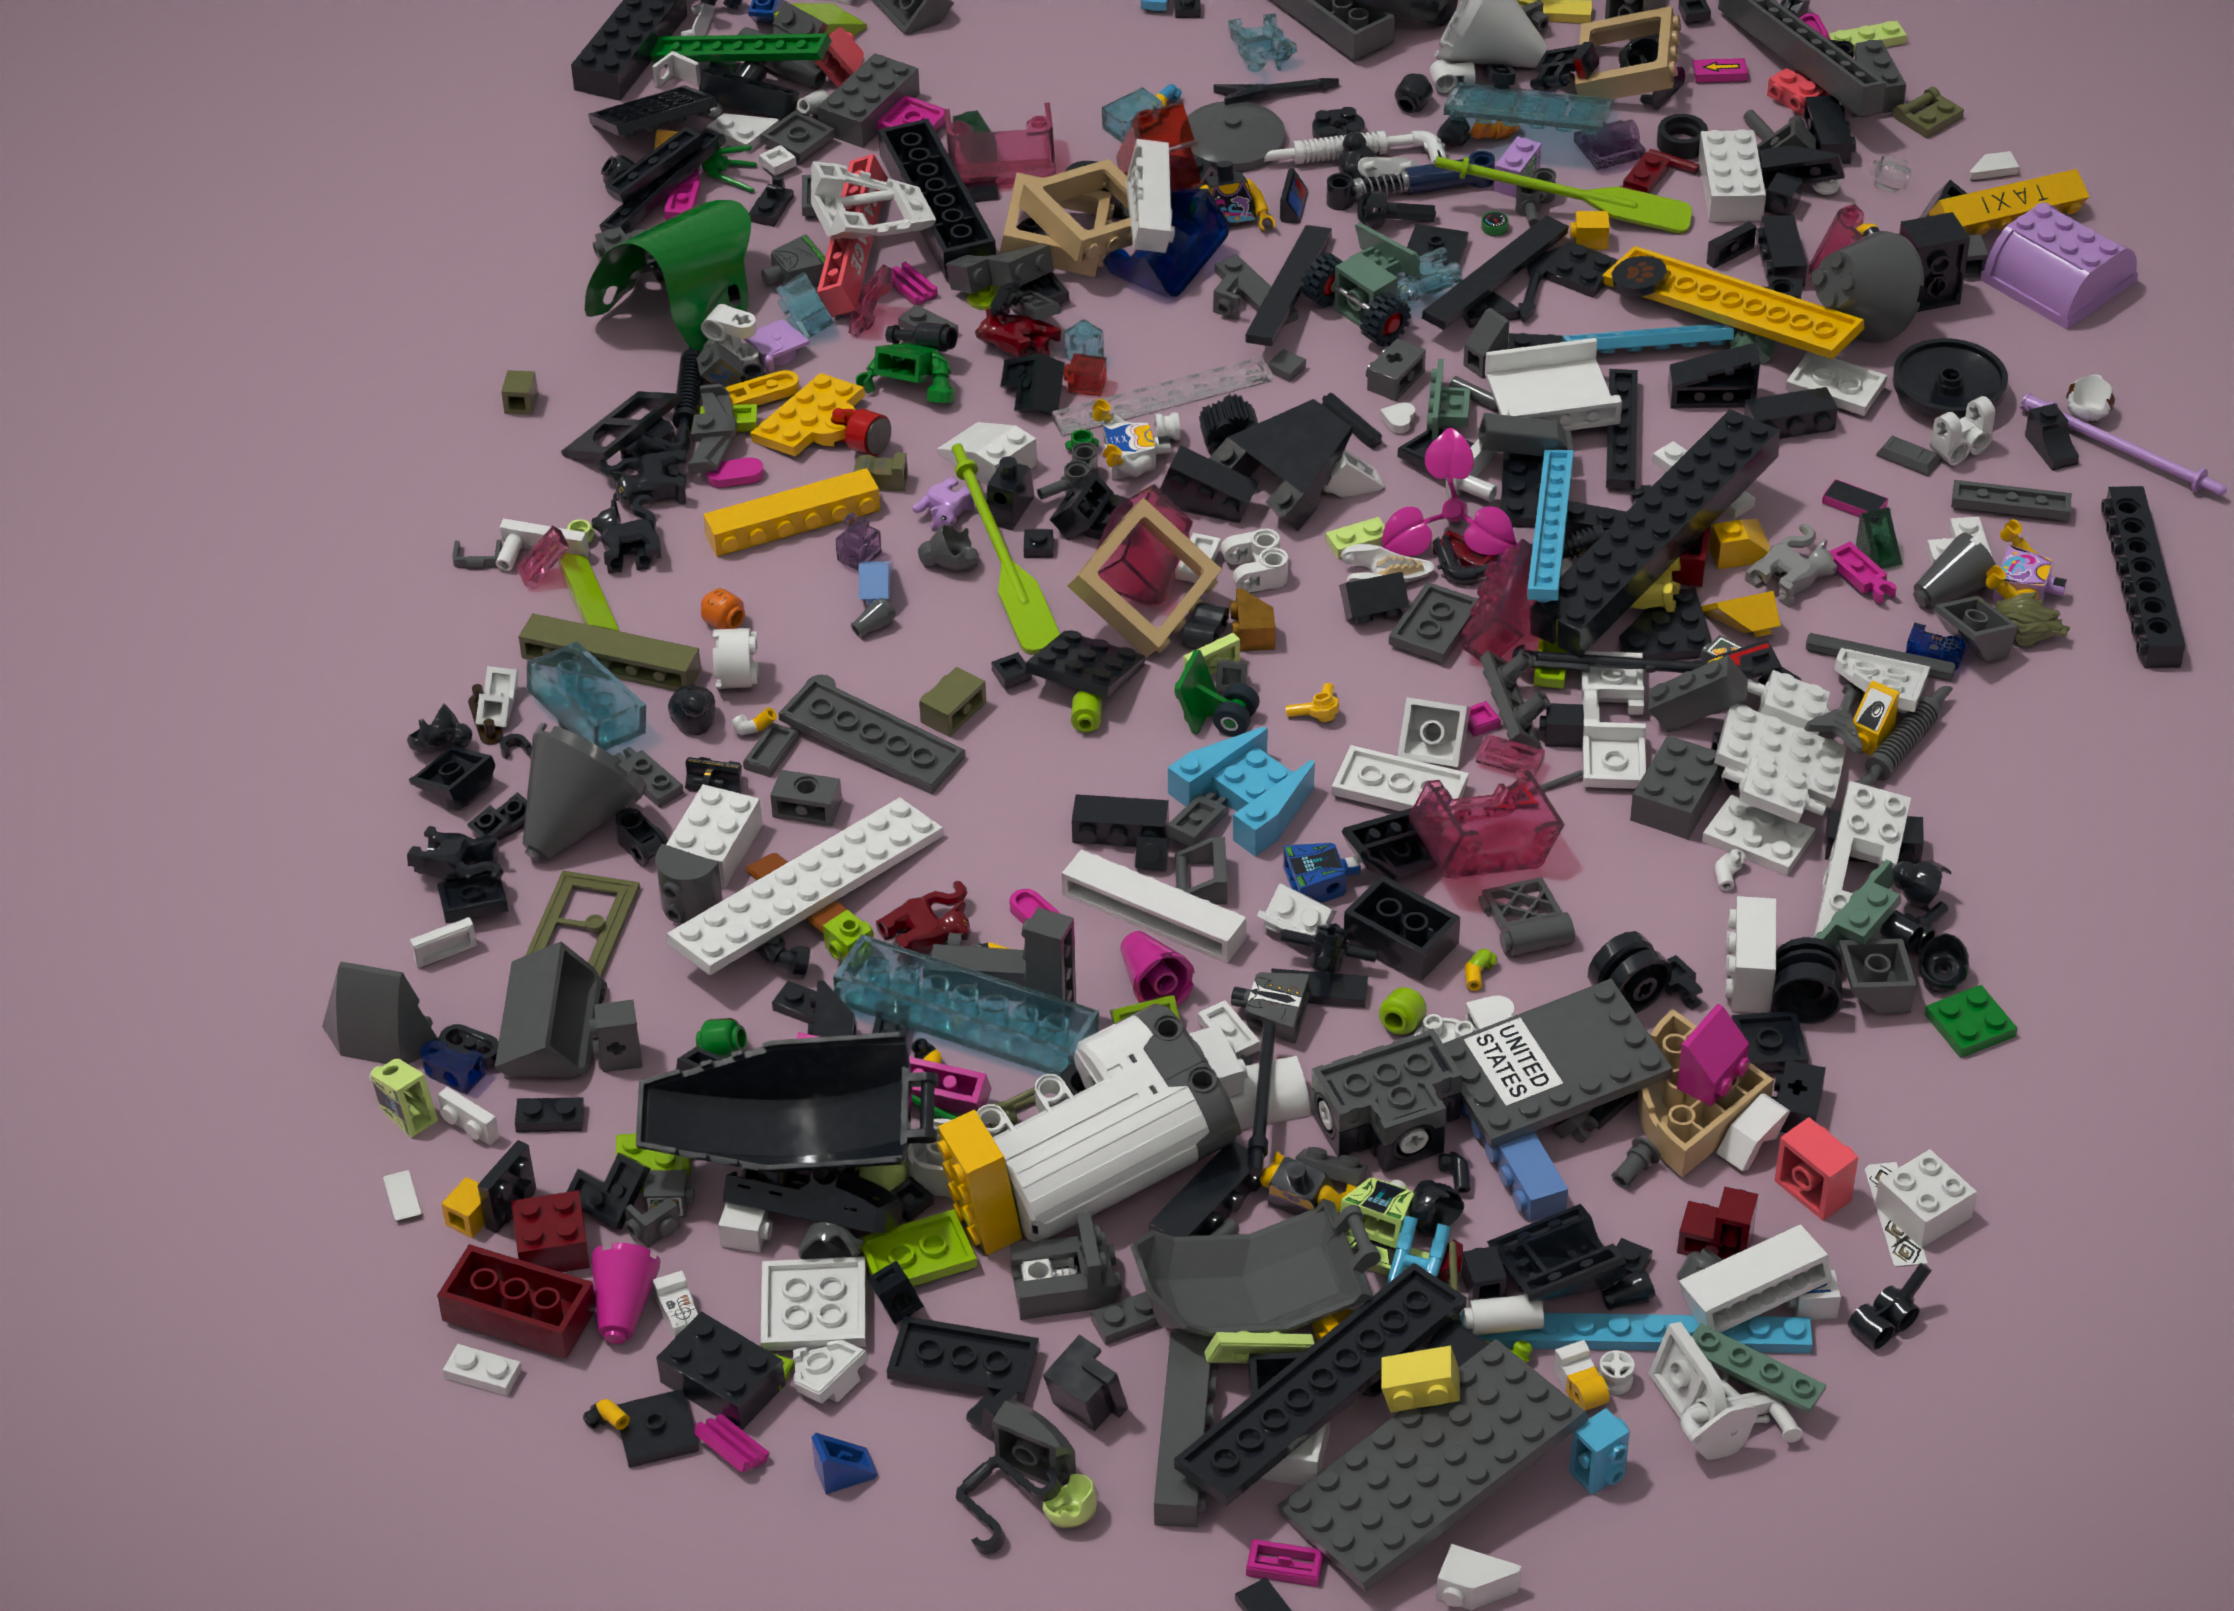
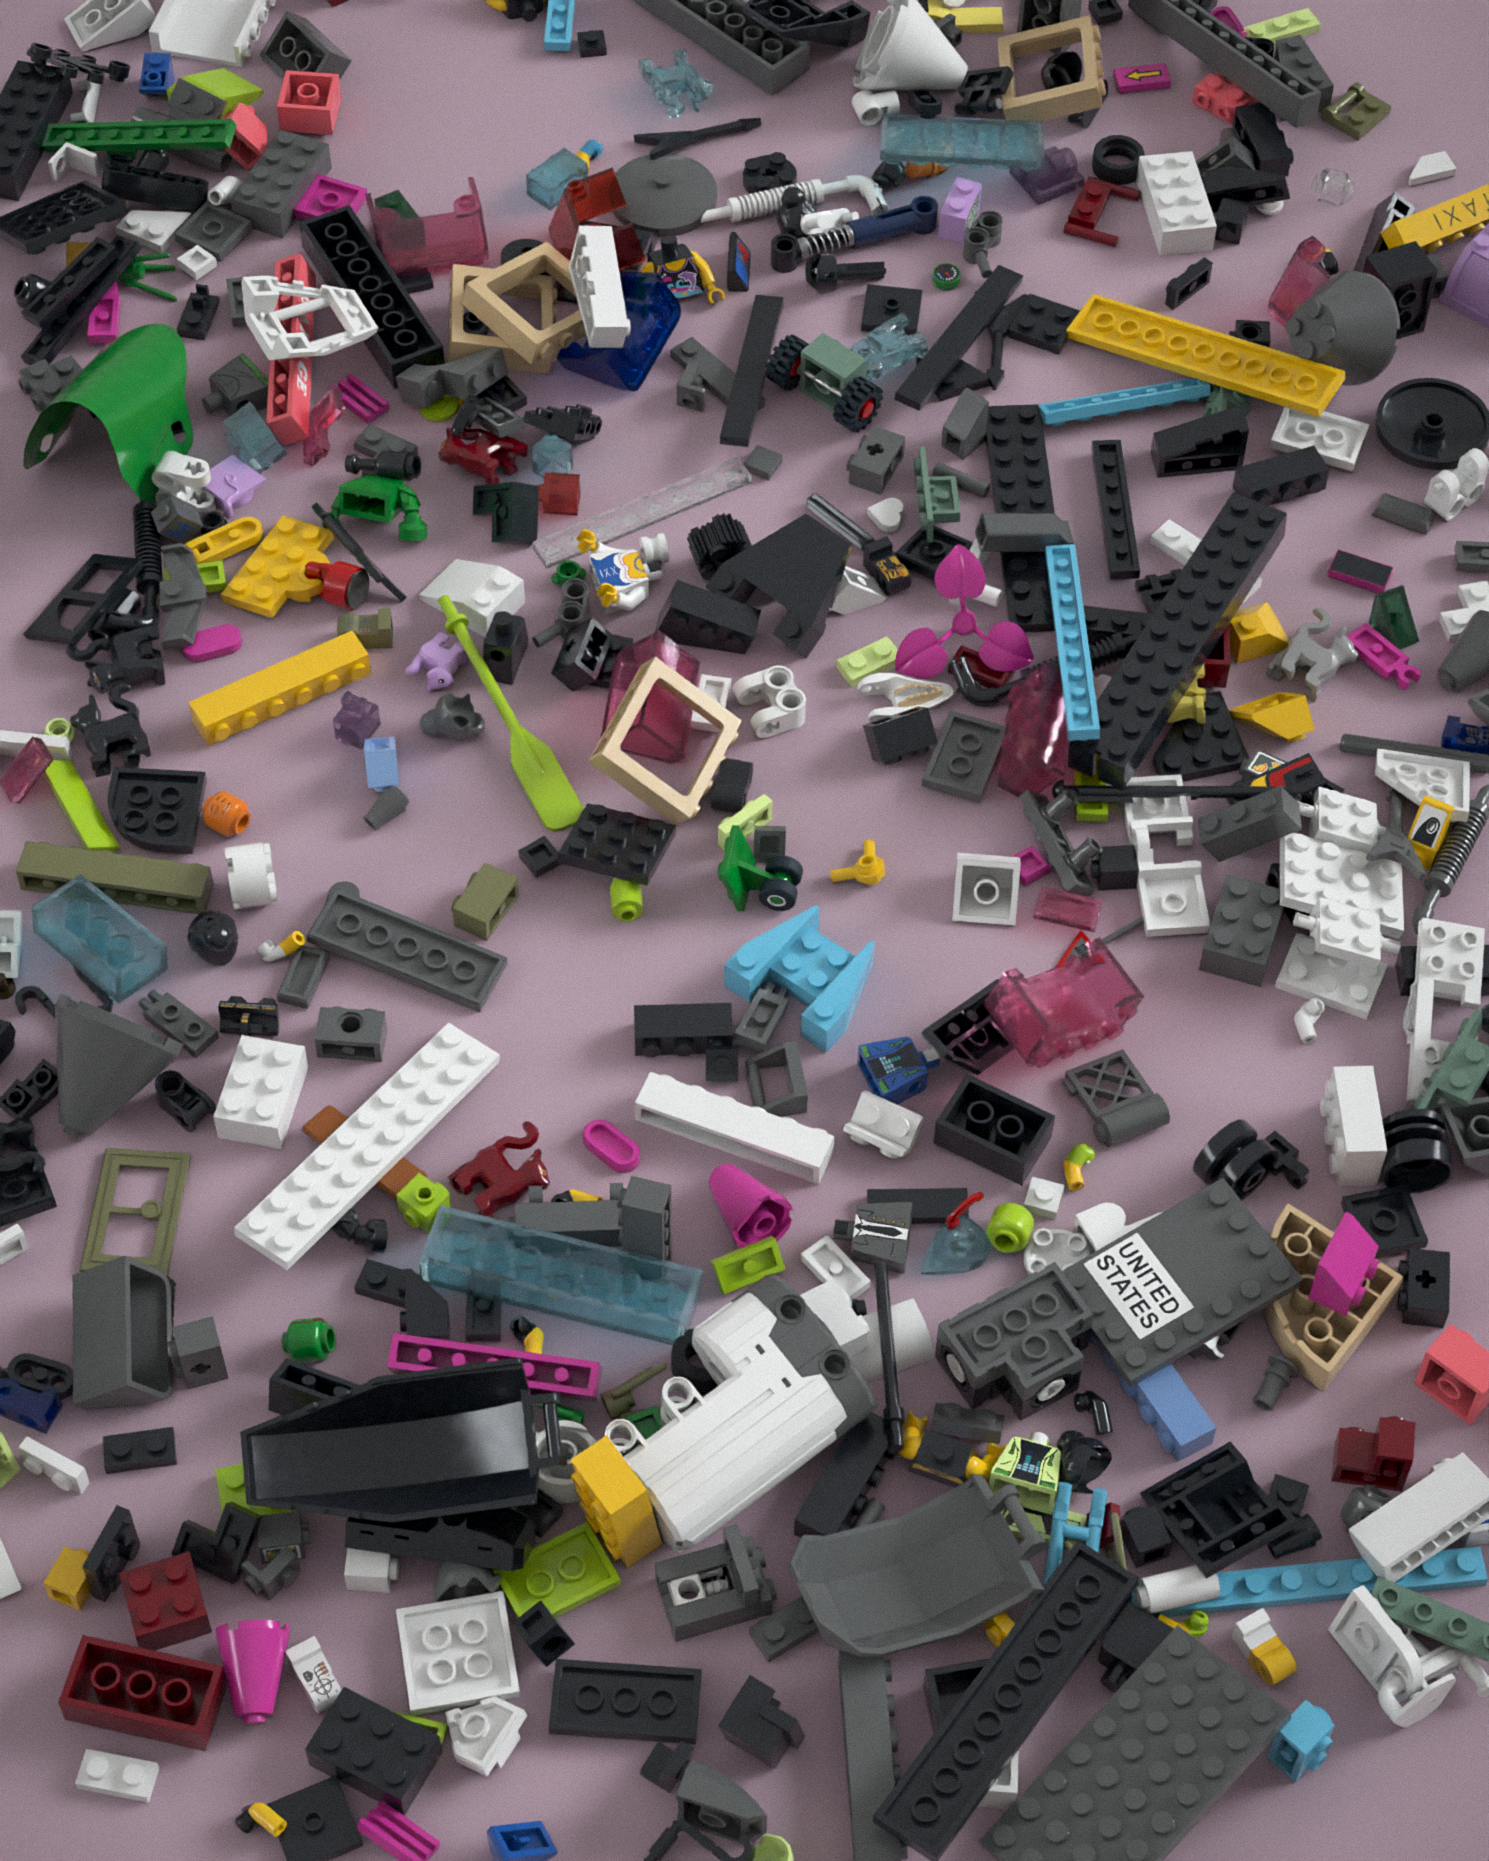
camera: 10 degrees left, 10 degrees up
(659, 600) = (157, 807): none -> black plate
(686, 883) = (244, 1159): dark grey brick -> none
(884, 405) = (355, 549): none -> black piece
(907, 34) = (309, 102): none -> coral brick
(1038, 543) = (542, 699): black plate -> none
(1104, 312) = (568, 422): none -> black plate
(1236, 1347) = (944, 1653): yellowish green plate -> none
(1254, 622) = (782, 775): pearl gold slope -> none
(1328, 947) = (923, 1161): black bar -> none
(1352, 1021) = (959, 1244): none -> clear light blue piece
(1387, 252) = (844, 325): sand green bracket -> none
(1387, 458) = (885, 566): none -> black leg
(1391, 779) = (958, 951): white plate -> none
(1413, 93) = (840, 130): black head -> none
(1420, 1379) = (1111, 1687): light yellow brick -> none
(1441, 992) = (1044, 1197): none -> white plate
(1553, 384) = (1040, 469): white panel -> none
(1585, 60) = (1012, 84): black plate -> none
(1591, 229) = (1045, 277): yellow brick -> none
(1620, 202) = (1063, 243): lime piece -> none
(1623, 1368) = (1303, 1630): white wheel -> none
(1639, 276) = (1106, 330): black tile -> none
(1757, 124) = (1191, 140): dark grey piece -> none
(1757, 1123) = (1388, 1334): white slope -> none
(1781, 247) = (1240, 285): black brick -> none

